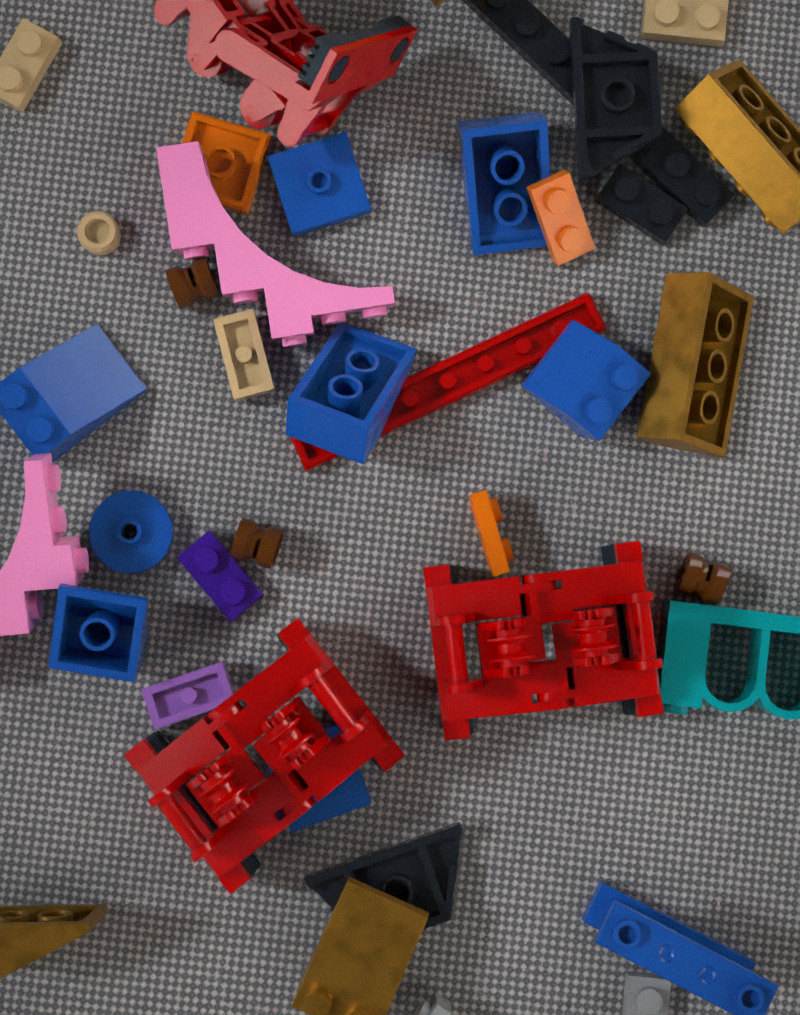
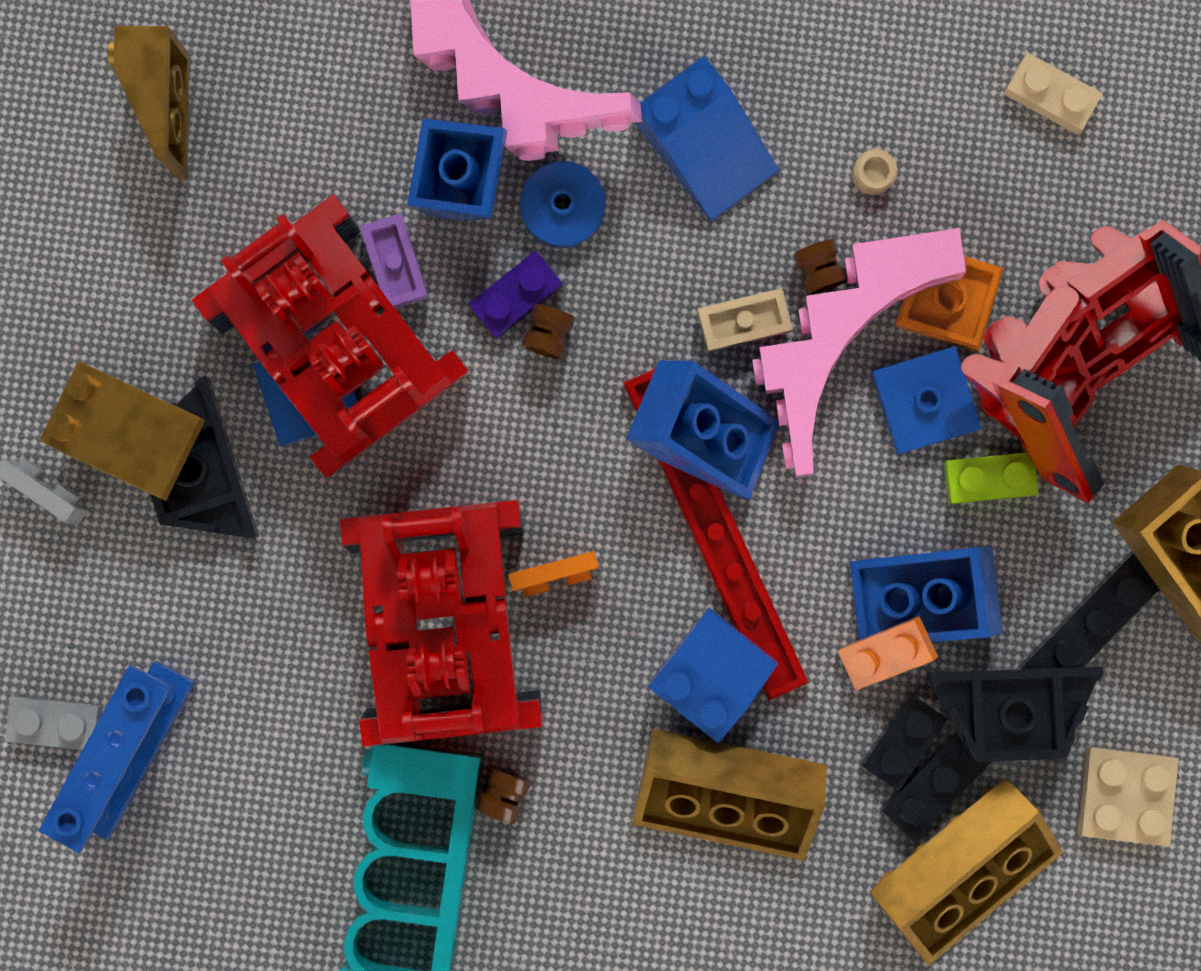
camera: 90 degrees right, 0 degrees up
(392, 124) = (990, 478): none -> lime plate

